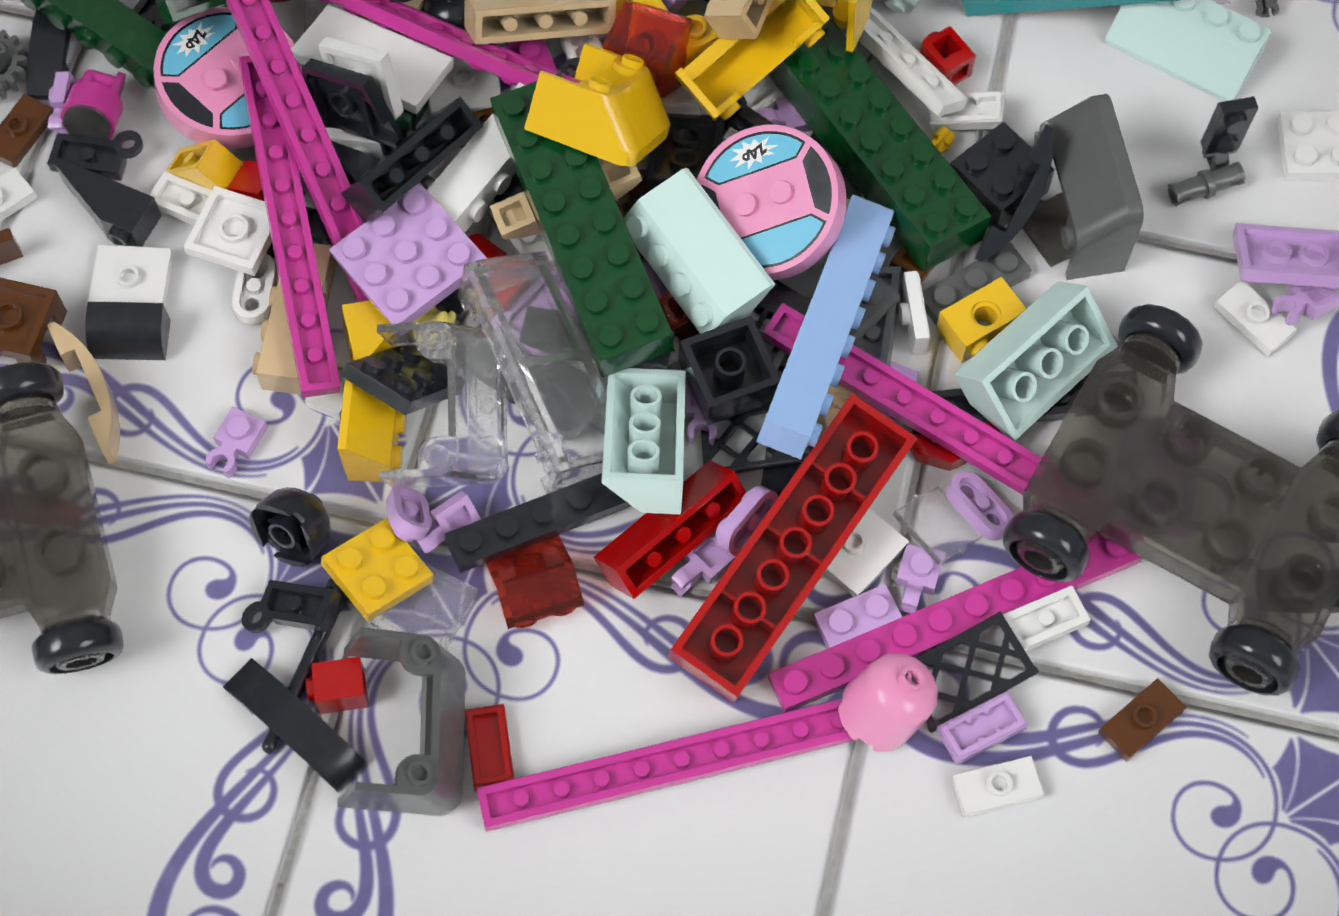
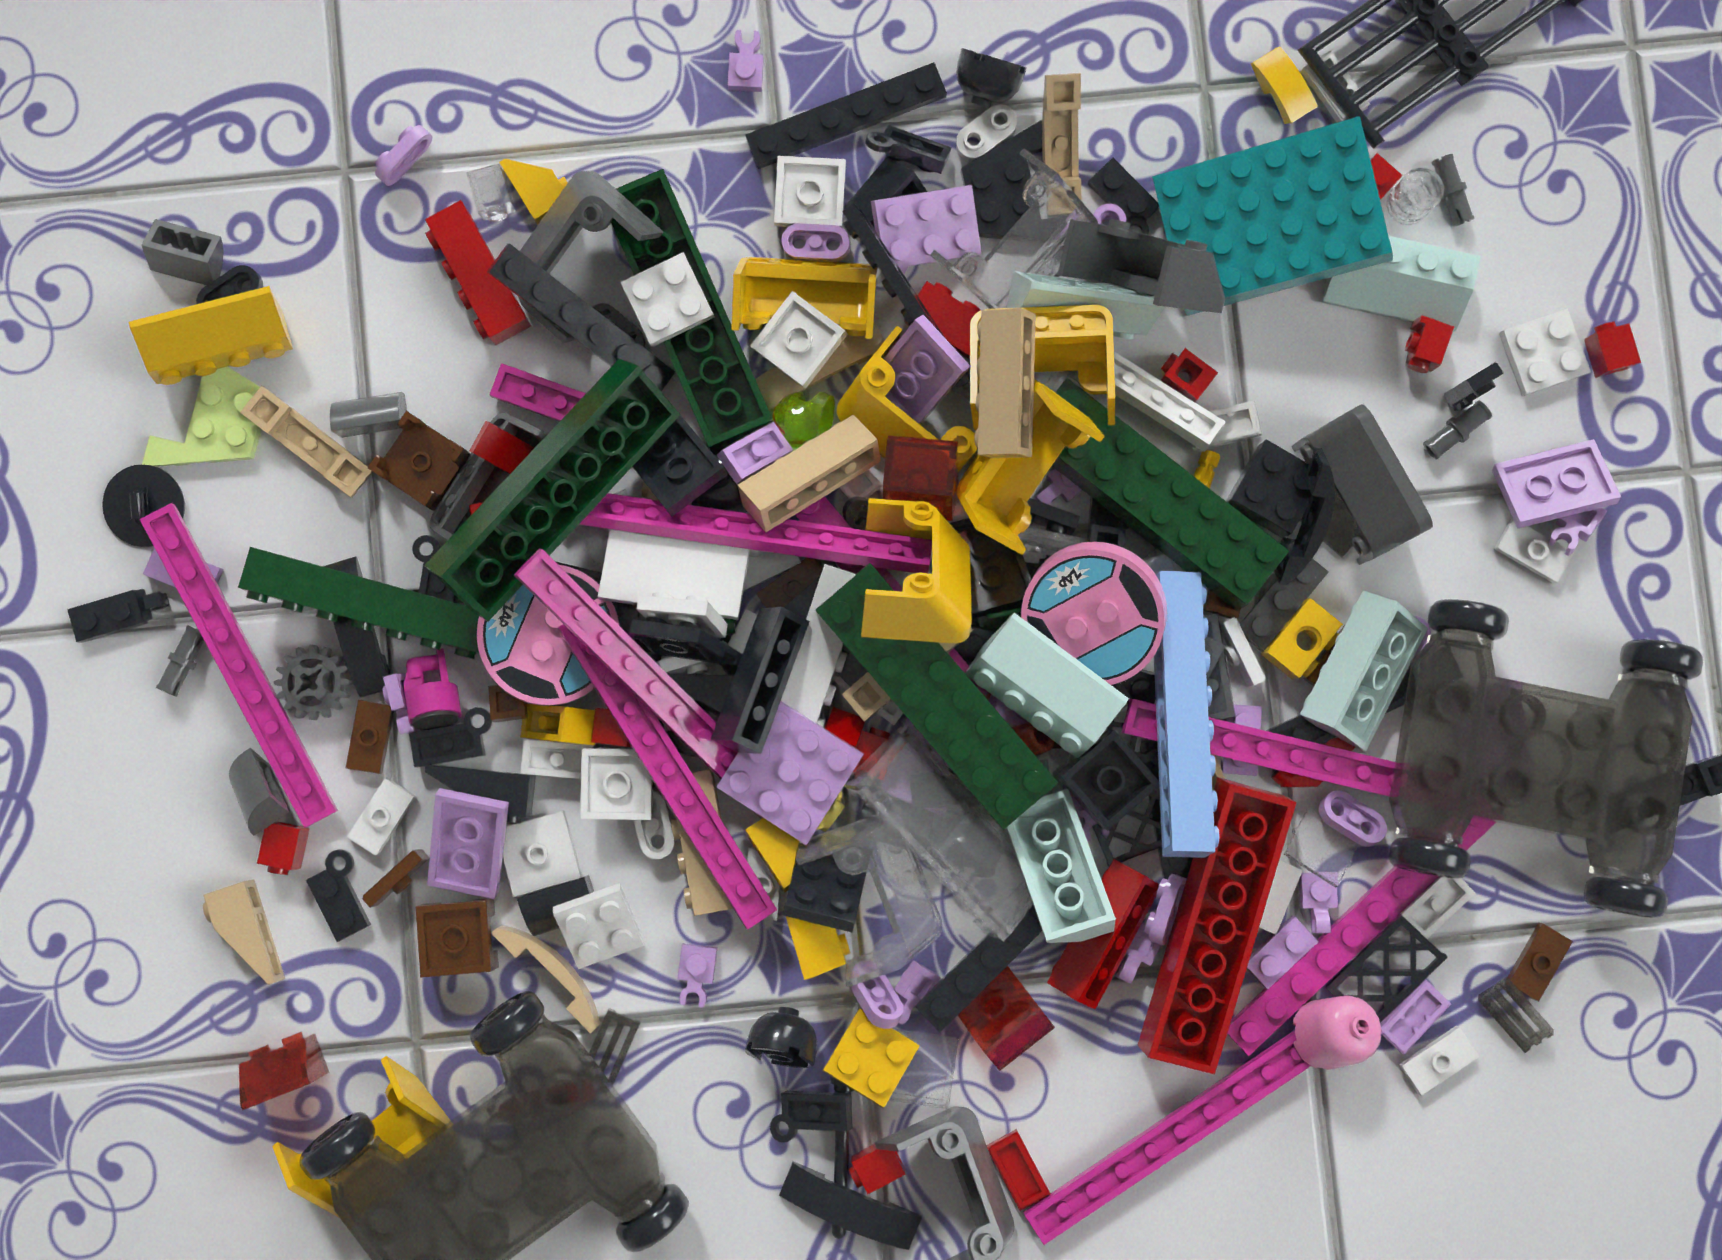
camera: 20 degrees left, 20 degrees up
(64, 238) = (467, 843): none -> lavender plate
(136, 482) = (622, 1021): none -> clear smoke tile
(156, 358) = (598, 926): none -> white plate
(162, 139) = (504, 706): none -> reddish brown plate
(1082, 732) = (1524, 1043): none -> clear smoke tile
(1198, 99) = (1427, 344): none -> red brick

